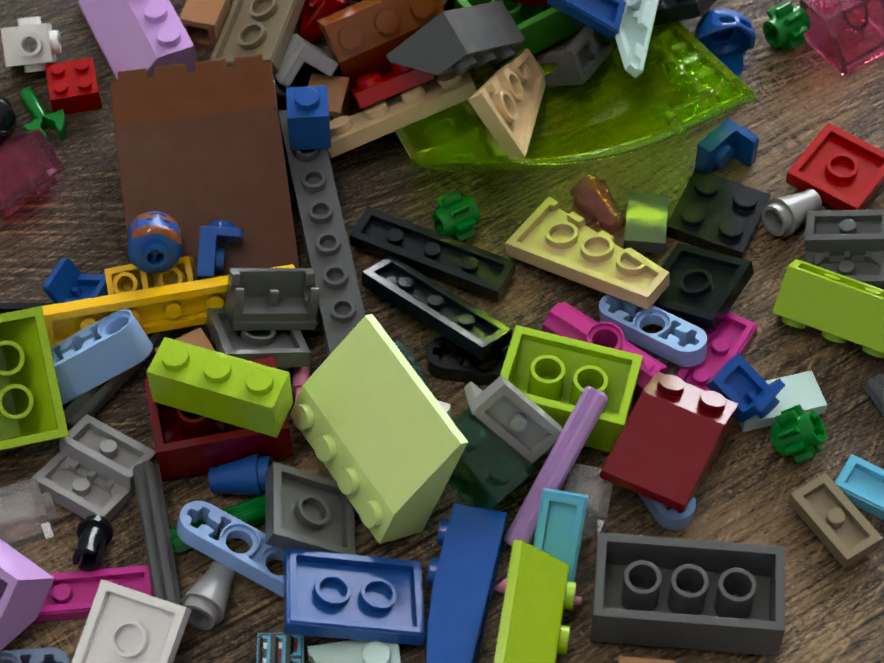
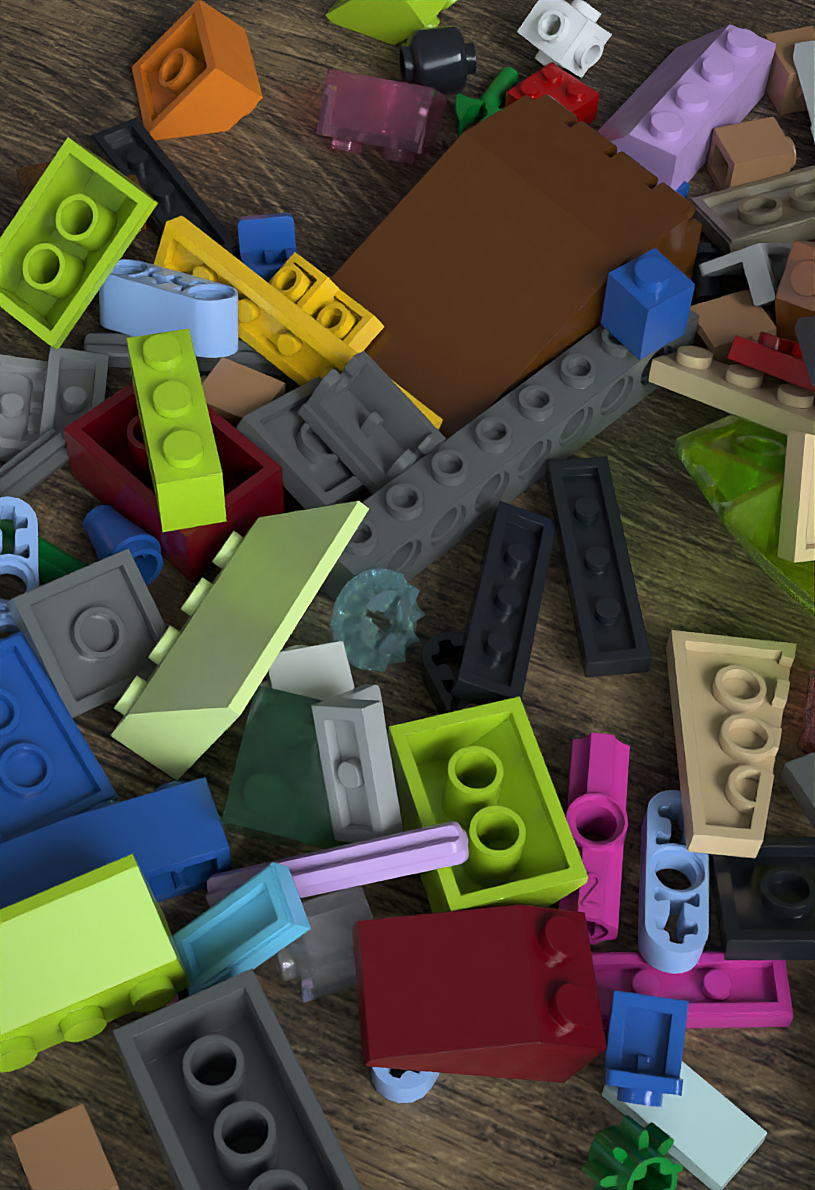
camera: 55 degrees right, 0 degrees up
(154, 242) = (355, 266): blue head -> none
(209, 255) = (392, 328): blue bracket -> none
(456, 216) = (668, 555): green gear -> none

